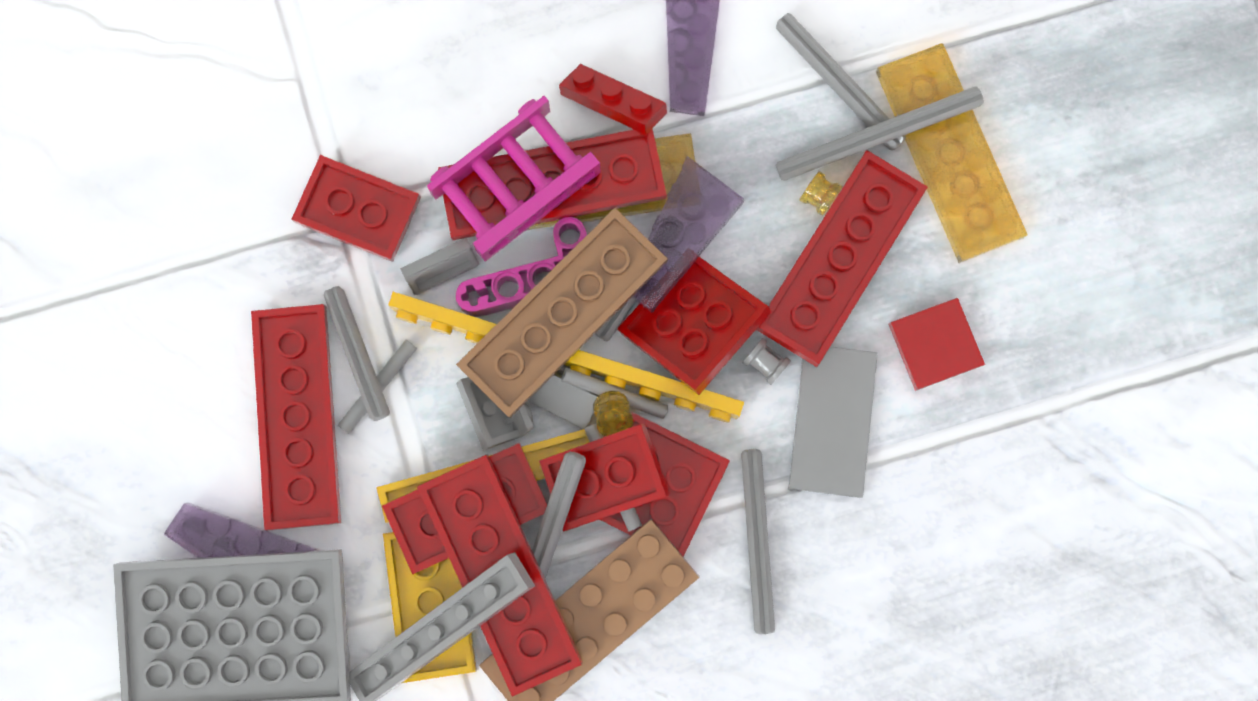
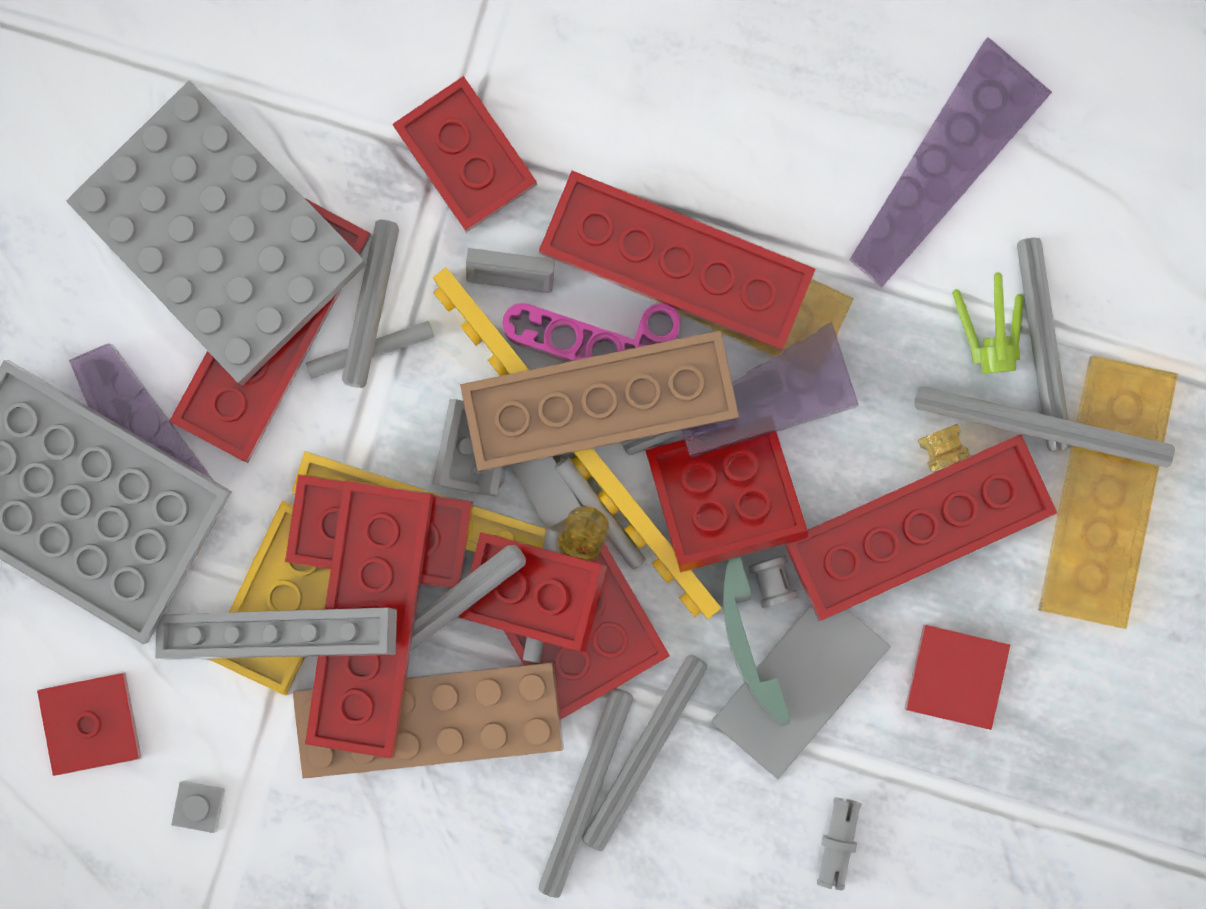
camera: 35 degrees right, 5 degrees up
(213, 374) = (216, 232): none -> light grey plate
(548, 192) = (664, 269): dark pink fence -> none
(613, 99) = (796, 213): red plate -> none
(735, 598) = (585, 793): none -> light grey axle
(813, 106) = (998, 352): none -> lime plant
(816, 441) = (768, 692): none -> sand green slope
(935, 514) = (839, 843): none -> light grey pin

